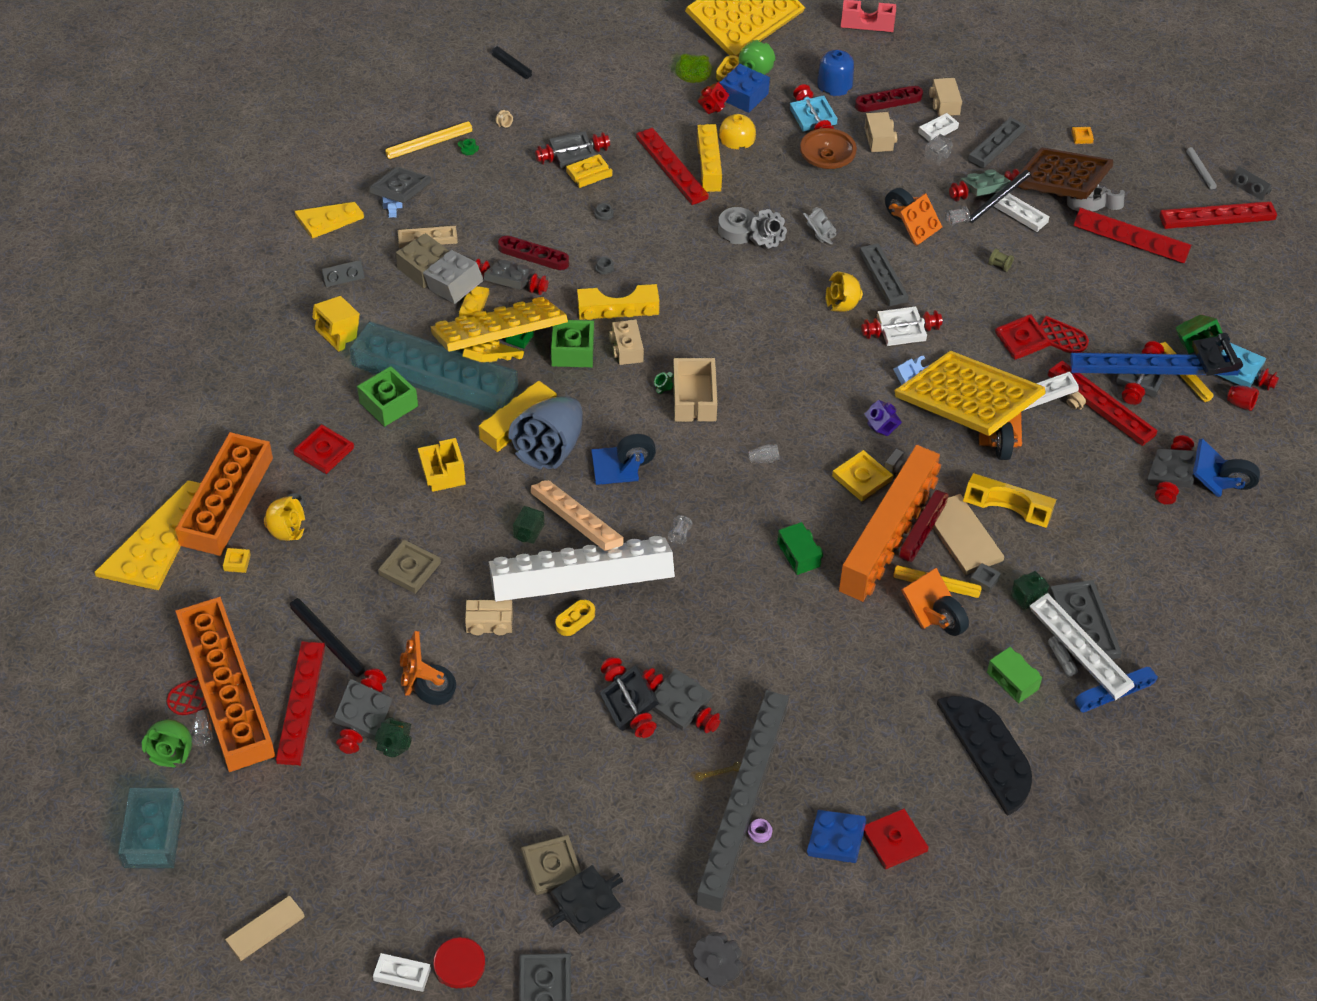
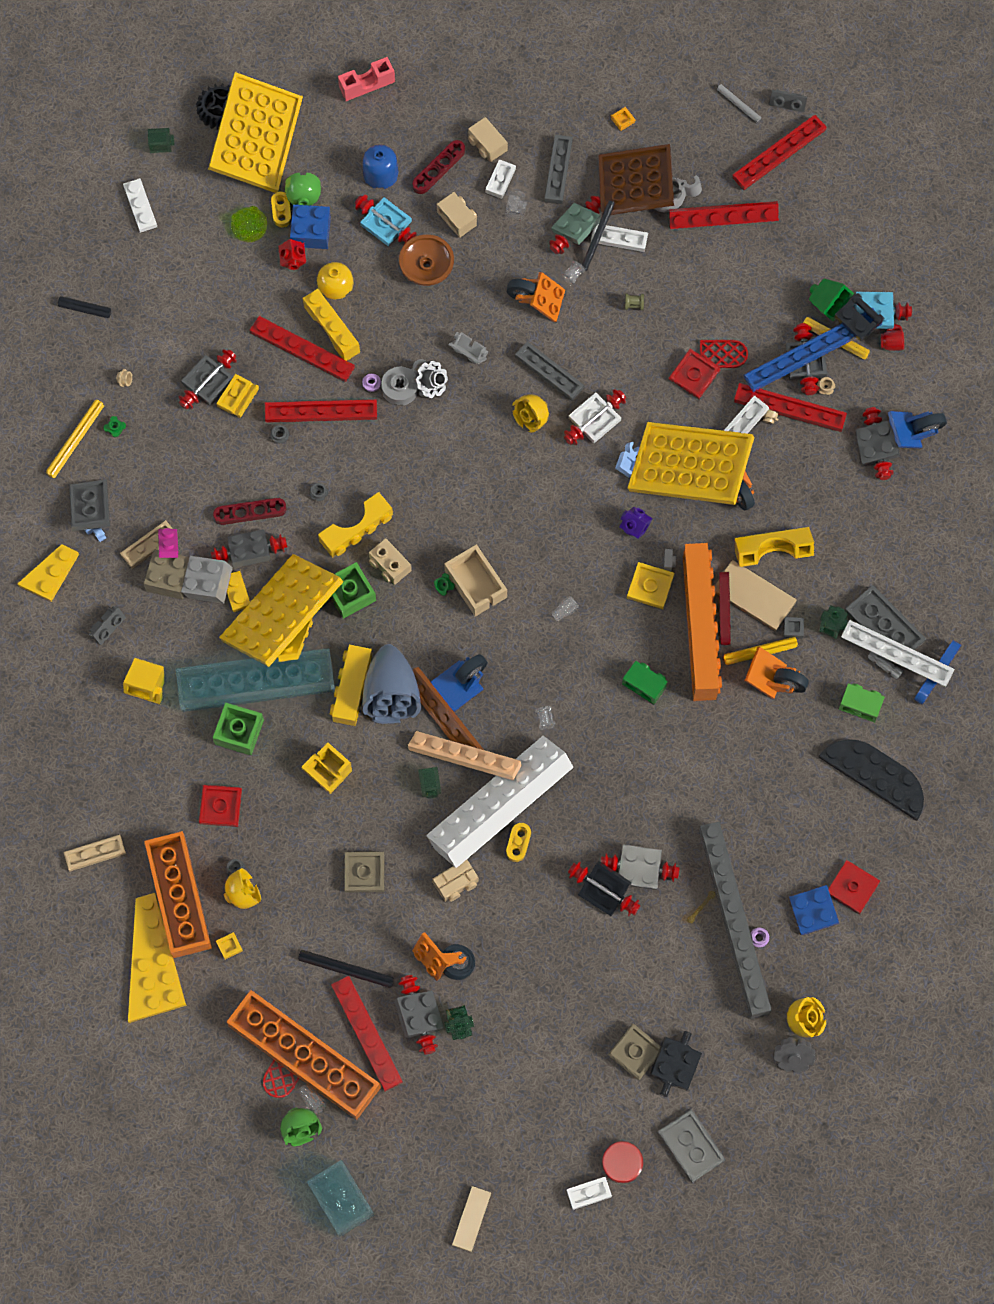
camera: 30 degrees left, 20 degrees up
(185, 430) = (94, 853): none -> tan tile
(441, 234) = (168, 543): none -> dark pink plate
(584, 474) = (442, 712): none -> dark orange plate
(613, 20) = (140, 205): none -> white plate
(653, 212) = (320, 411): none -> red plate
(713, 212) = (371, 387): none -> lavender plate
(756, 928) = (806, 1017): none -> yellow cylinder
(1150, 402) = (826, 381): none -> tan plate

